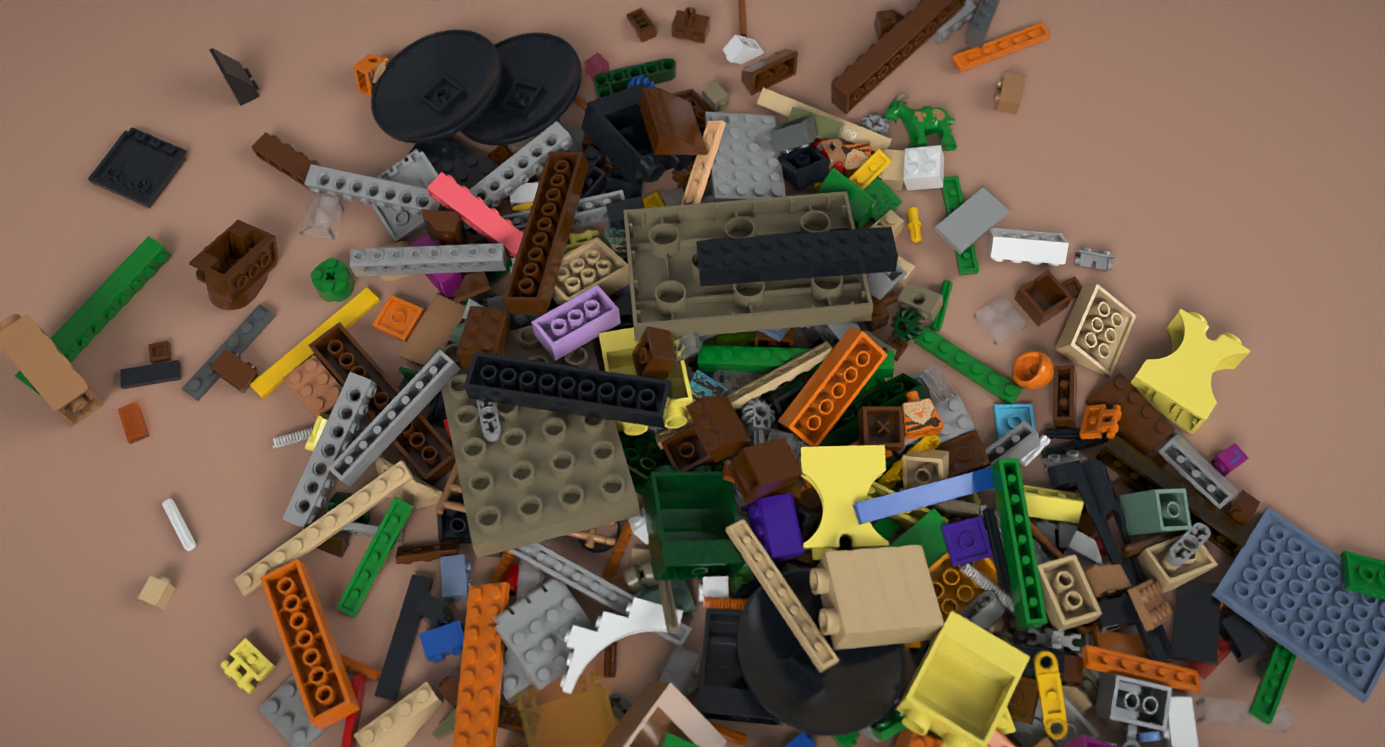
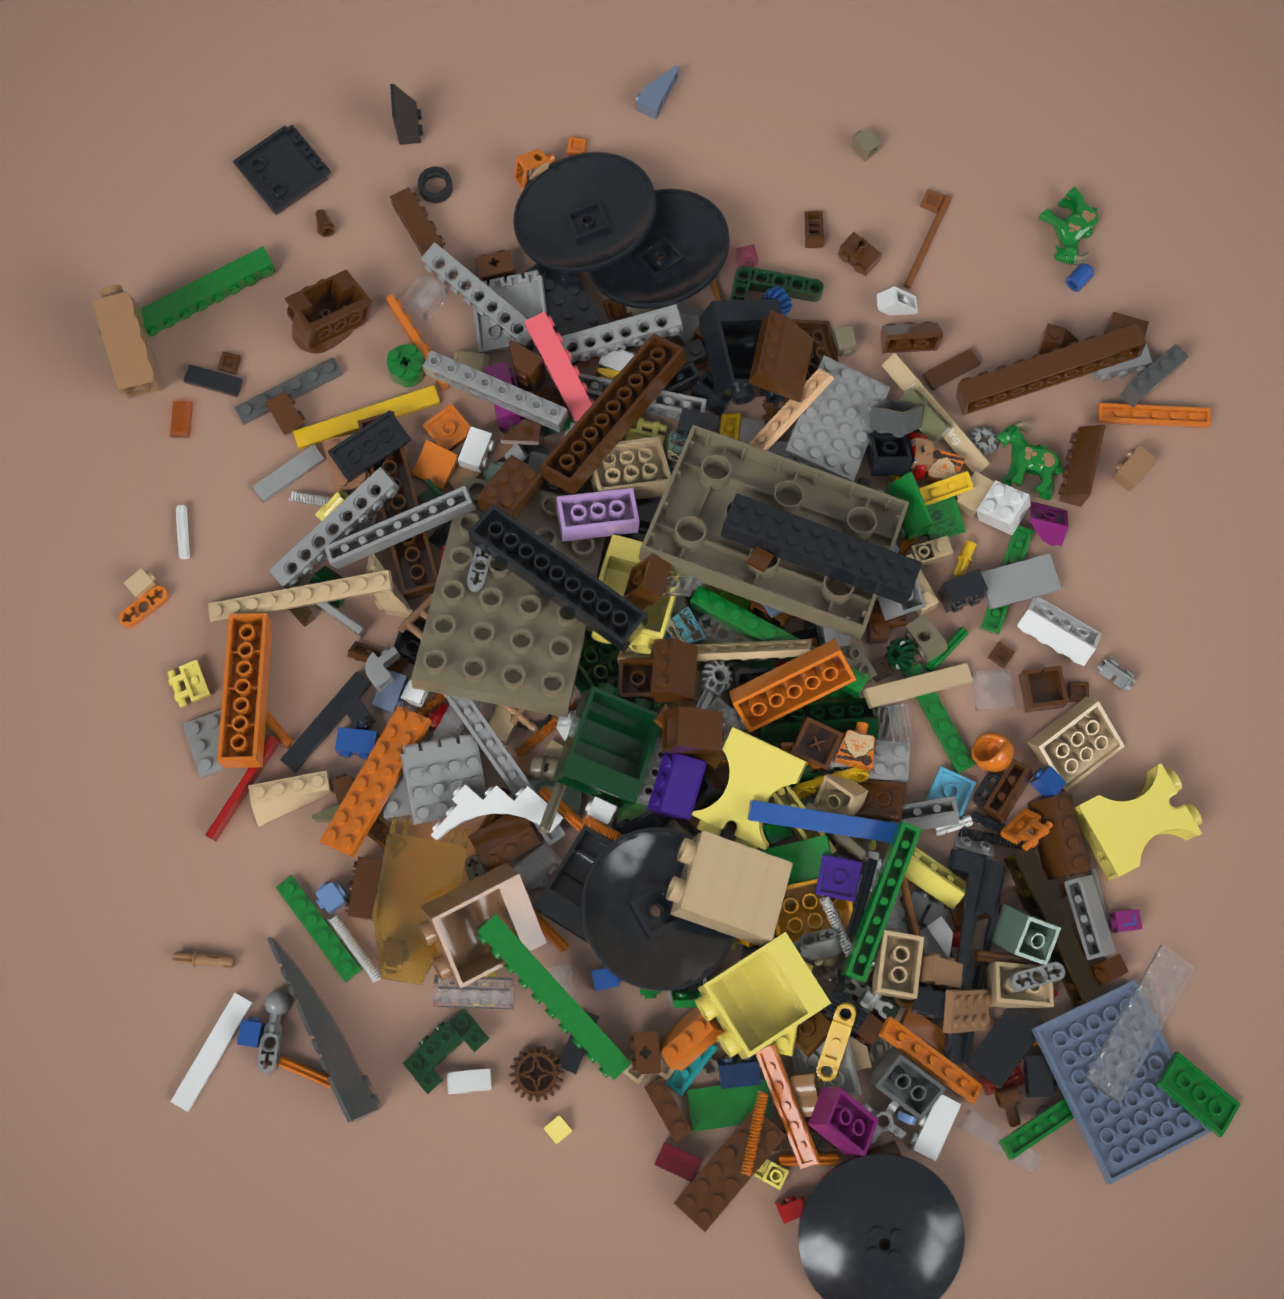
camera: 25 degrees right, 10 degrees up
(165, 630) = (145, 598): none -> orange beam
(200, 197) = (324, 224): none -> reddish brown cone
(262, 424) = (288, 473): none -> light grey tile
(284, 113) = (432, 172): none -> black tyre
(325, 252) = (412, 333): none -> orange plate
(330, 362) = (369, 446): none -> black tile
(375, 163) = (503, 263): none -> reddish brown brick
(375, 557) = (331, 642): green plate -> none
(401, 42) = (576, 146): none -> orange tile
(401, 351) = (435, 464): none -> orange tile
(433, 323) = (476, 449): none -> white brick
(433, 559) = (376, 668): none -> light grey brick
(480, 567) = (414, 696): none -> white brick
(577, 552) = (501, 724): none -> tan slope
(634, 664) = (503, 840): none -> reddish brown slope
(687, 608) = (564, 810): none -> orange axle
(747, 288) = (760, 559): none -> reddish brown tile
(782, 595) = (650, 846): tan tile -> none
(816, 82) = (951, 369): none -> reddish brown tile
(930, 248) = (963, 591): none -> black brick
(936, 344) = (917, 685): none -> tan tile
(968, 107) = (1081, 464): none -> reddish brown slope
(970, 164) = (1049, 523): none -> magenta slope
(989, 288) = (1001, 654): none -> reddish brown tile
(1040, 406) = (983, 787): none -> black beam
(1093, 373) = (1047, 782): none -> blue brick
(1228, 671) = (1008, 1099): none -> reddish brown axle
(1299, 543) = (1139, 1023): none -> clear plate

